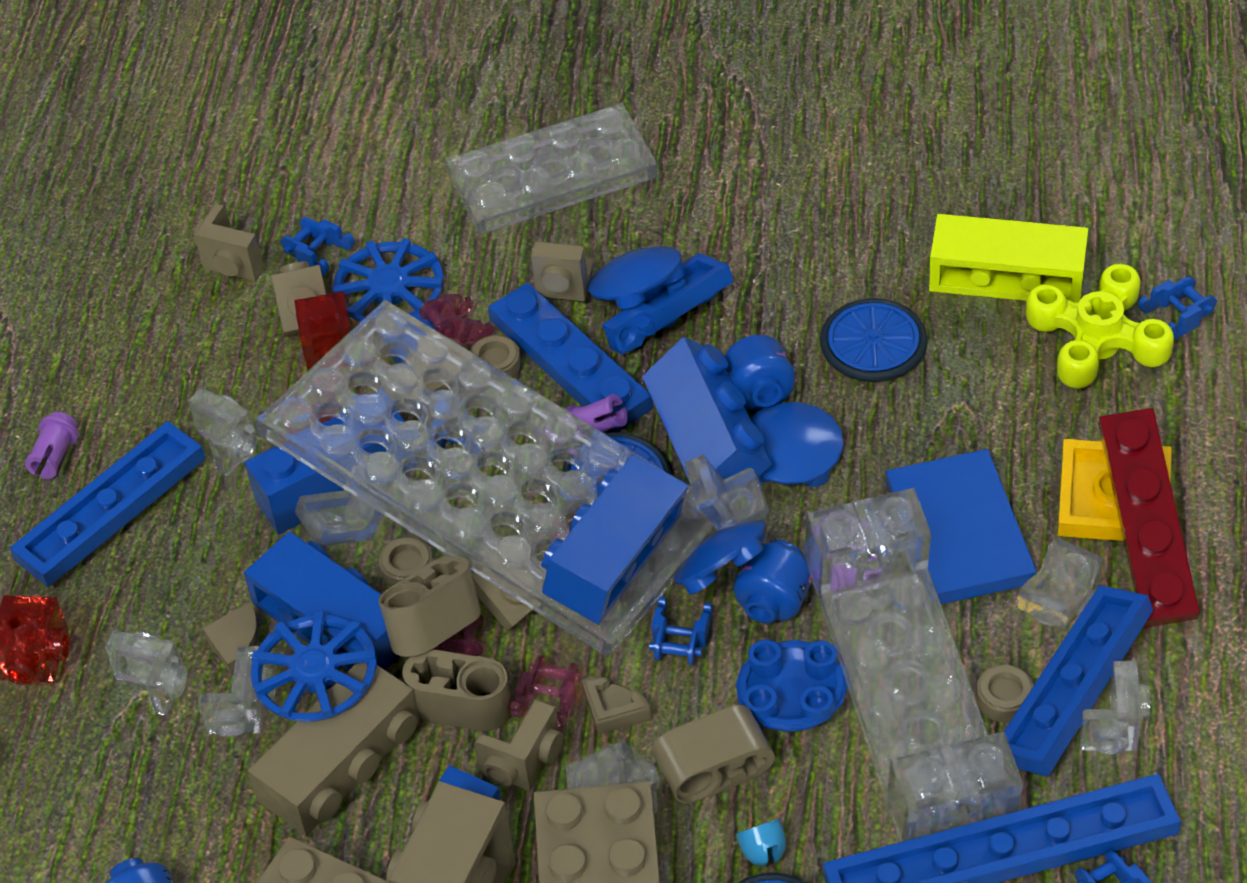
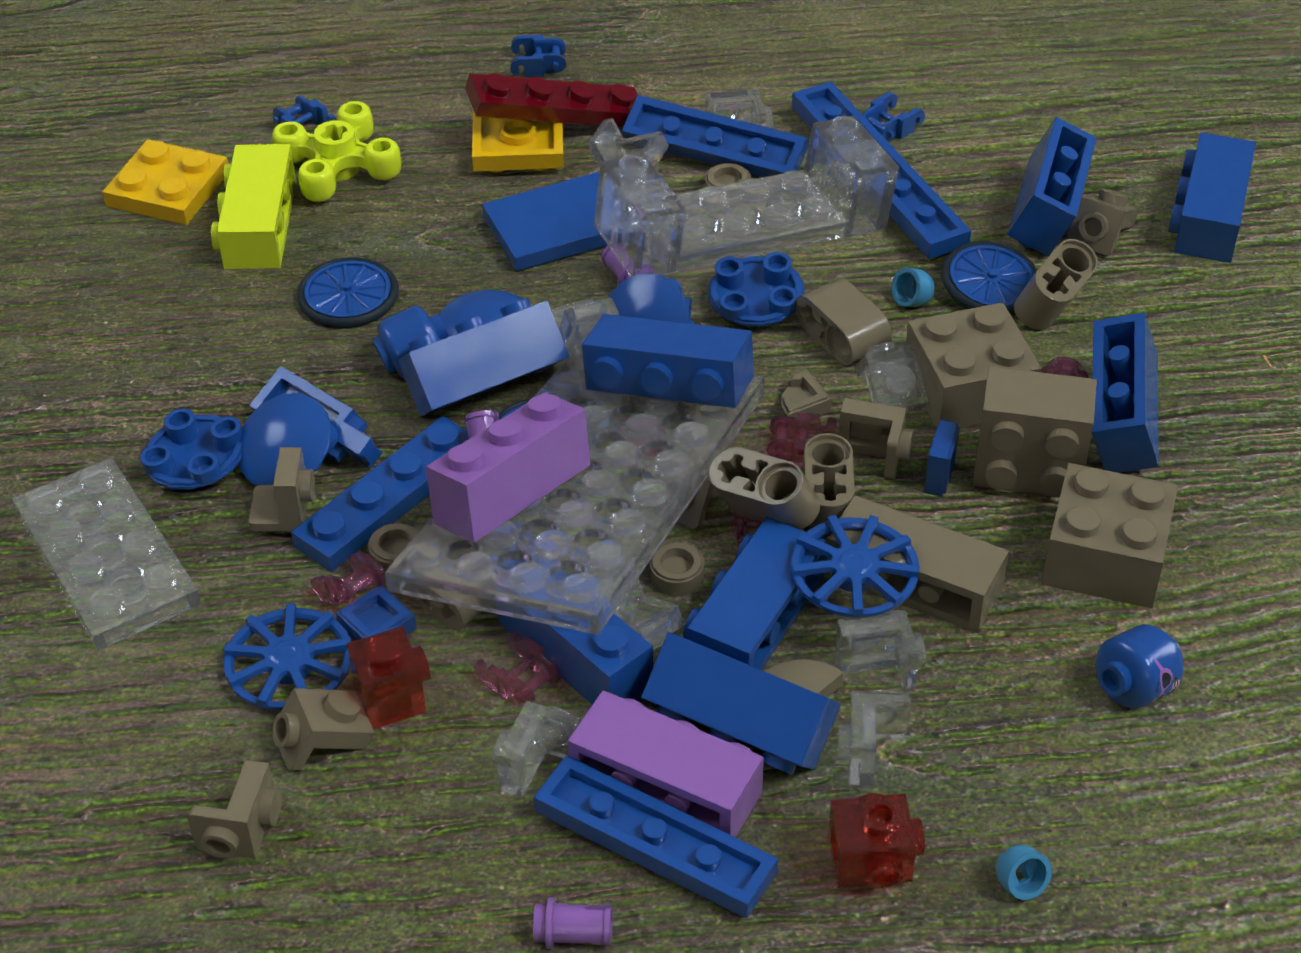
camera: 105 degrees left, 5 degrees down
(167, 515) = (670, 761): none -> medium lavender brick
(203, 568) = (741, 703): none -> blue brick
(322, 232) = (242, 747): blue piece -> none
(460, 375) = (508, 466): none -> medium lavender brick
(654, 217) = (193, 450): none -> blue dish
(1082, 193) = (165, 182): none -> yellow plate

